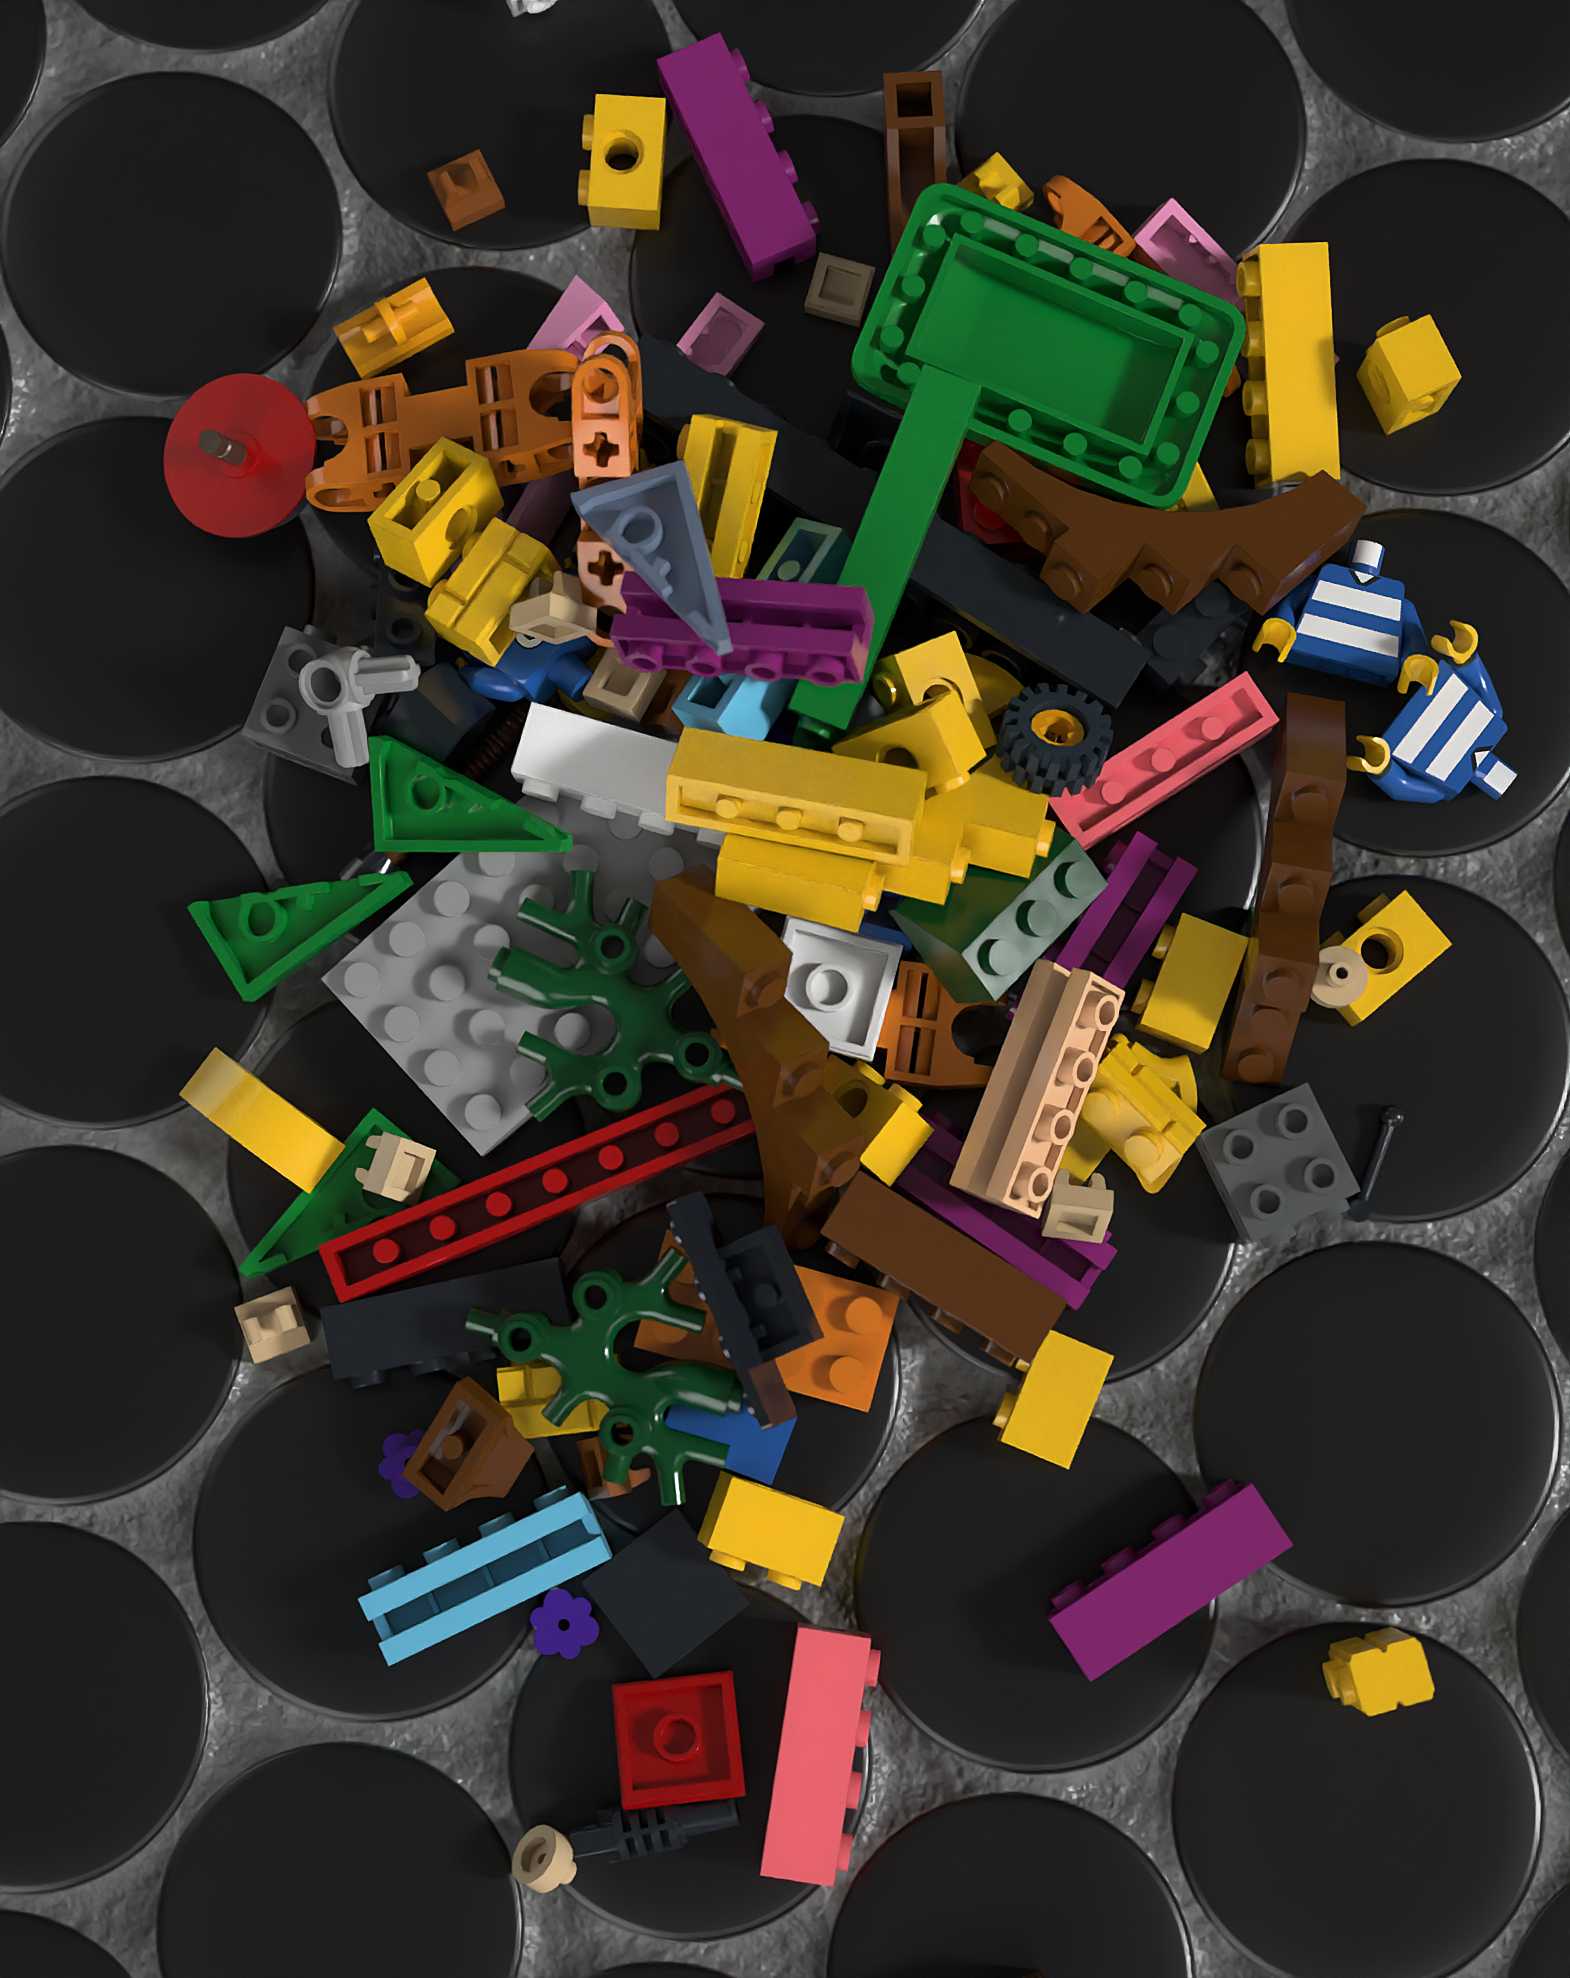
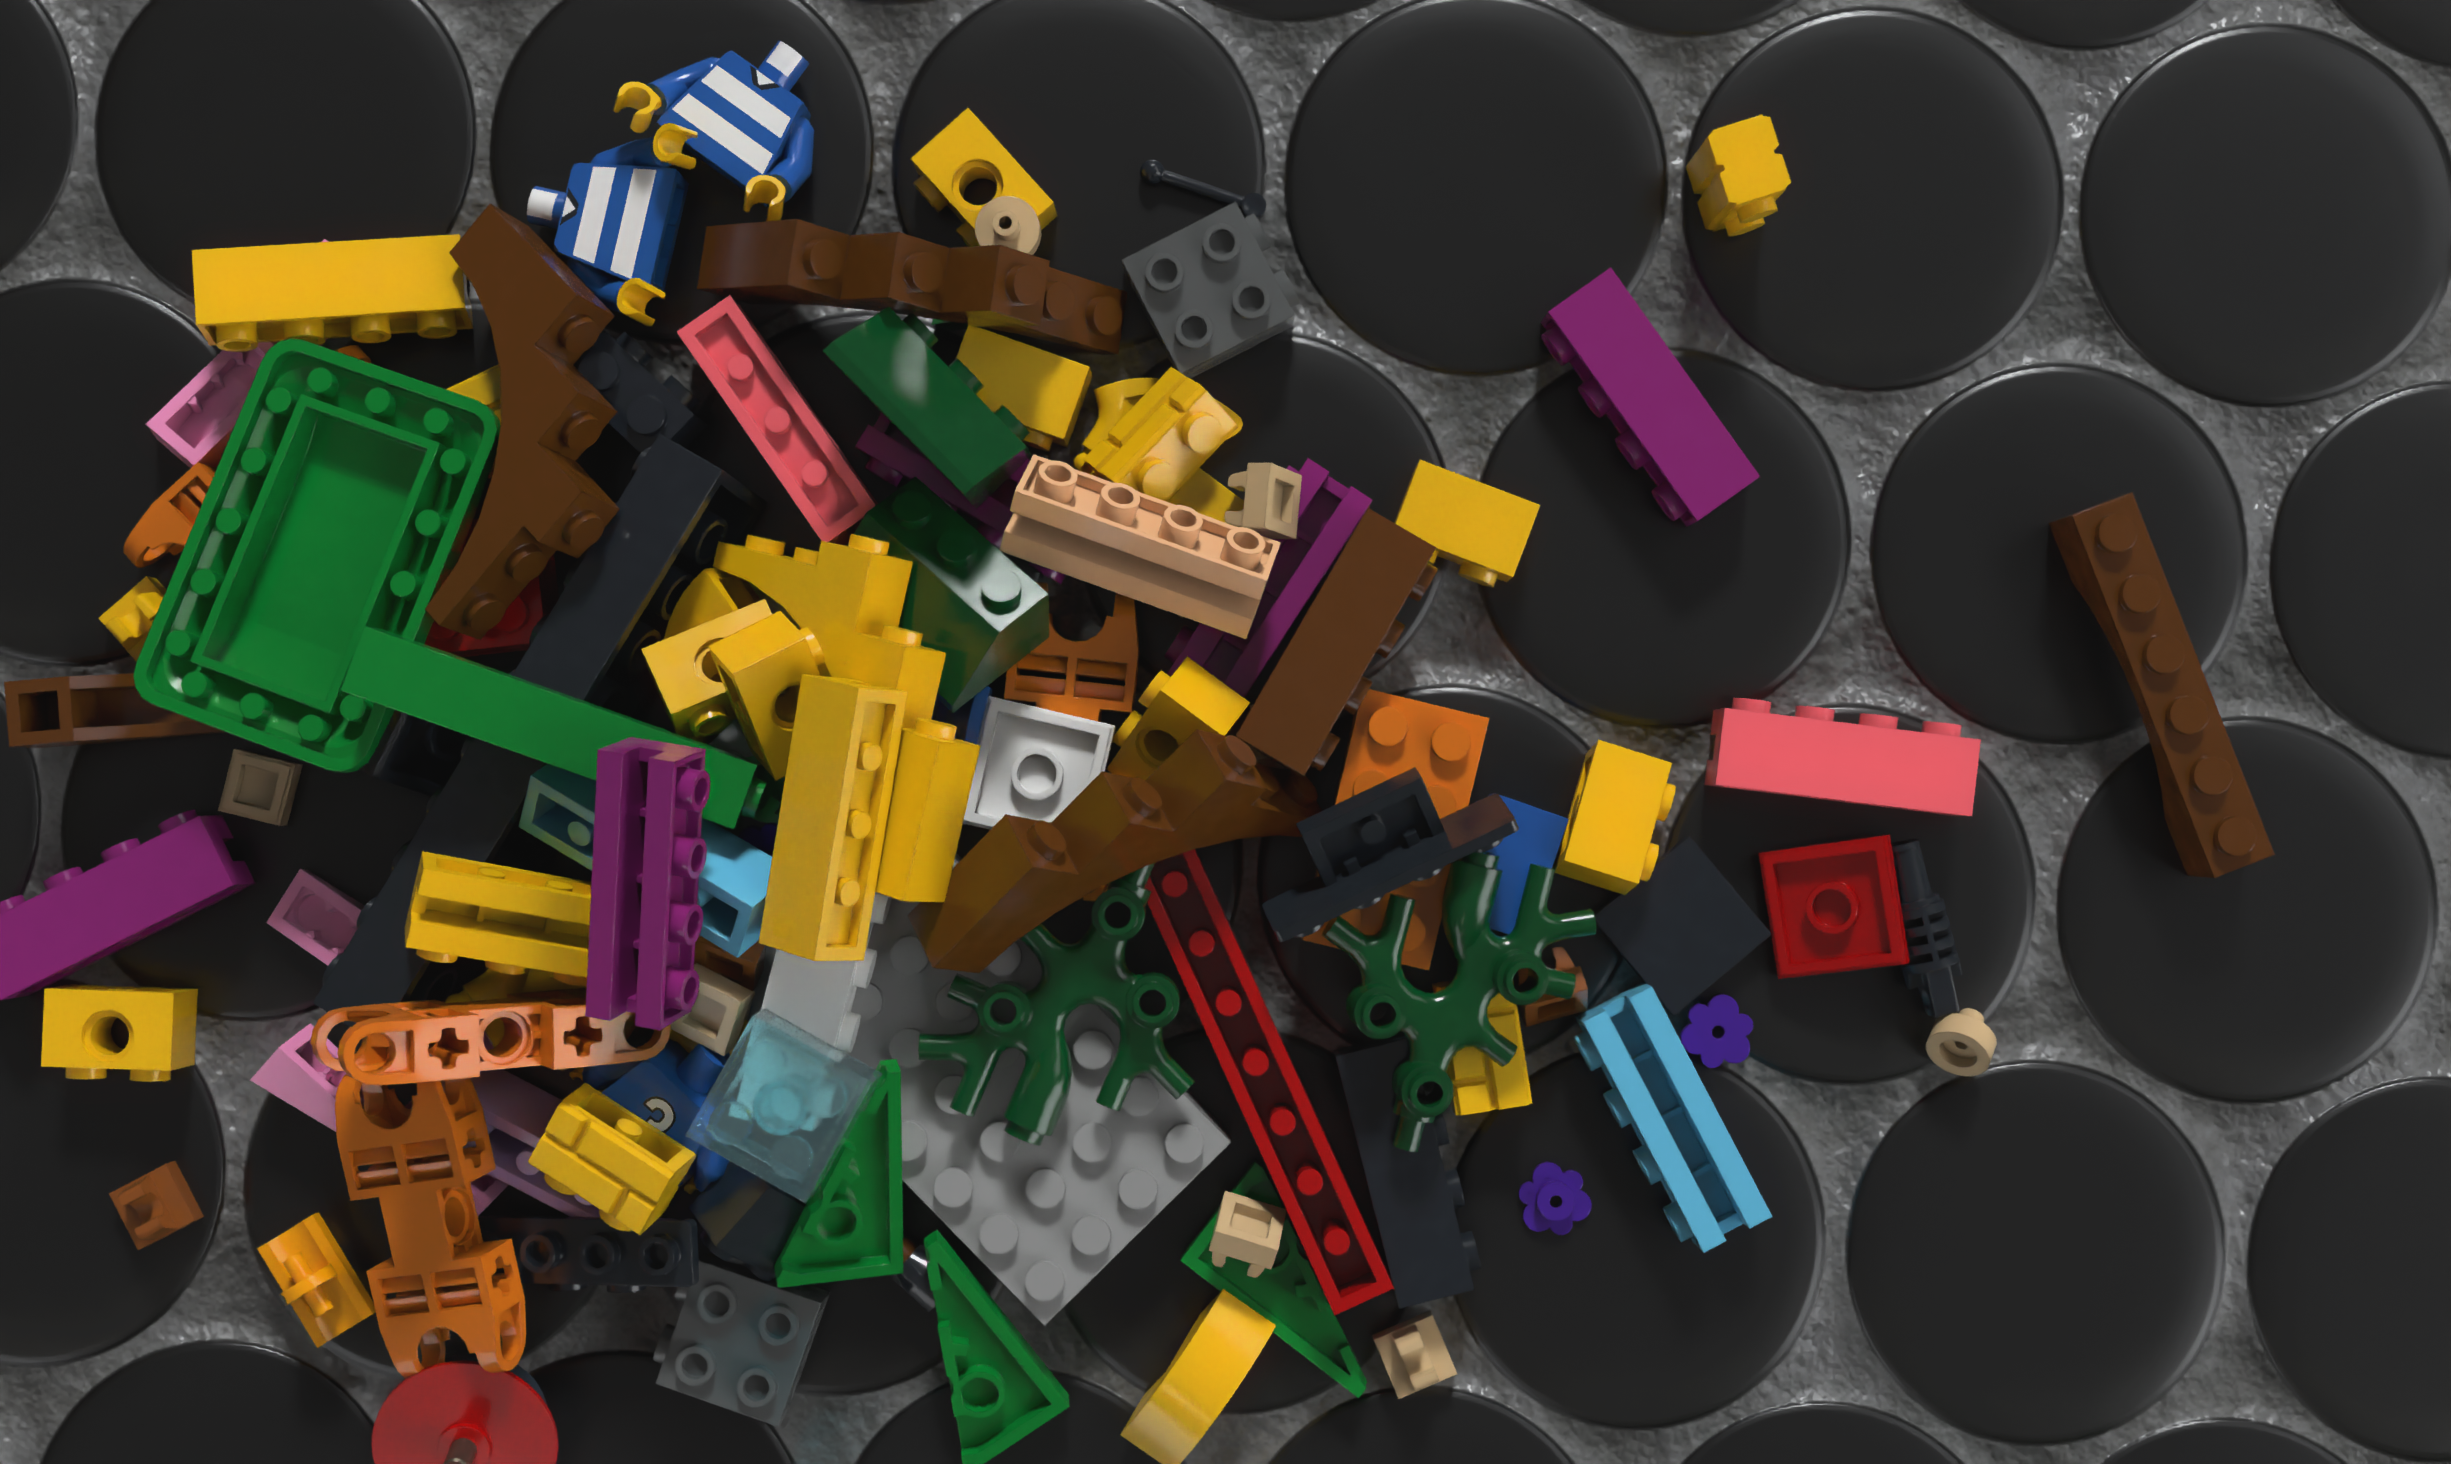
camera: 95 degrees left, 5 degrees up
(360, 681) = (739, 1318): light grey axle -> none
(436, 511) = (523, 1226): yellow brick -> none
(468, 1449) = (1543, 1142): reddish brown slope -> none
(536, 745) = (784, 1104): none -> clear light blue brick
(554, 611) = (632, 1091): tan tile -> none
(660, 535) = (544, 978): sand blue wing -> none
(1051, 763) = (785, 543): black bush -> none
(1174, 900) = (932, 402): none -> dark green slope
(1407, 372) = (337, 162): yellow brick -> none

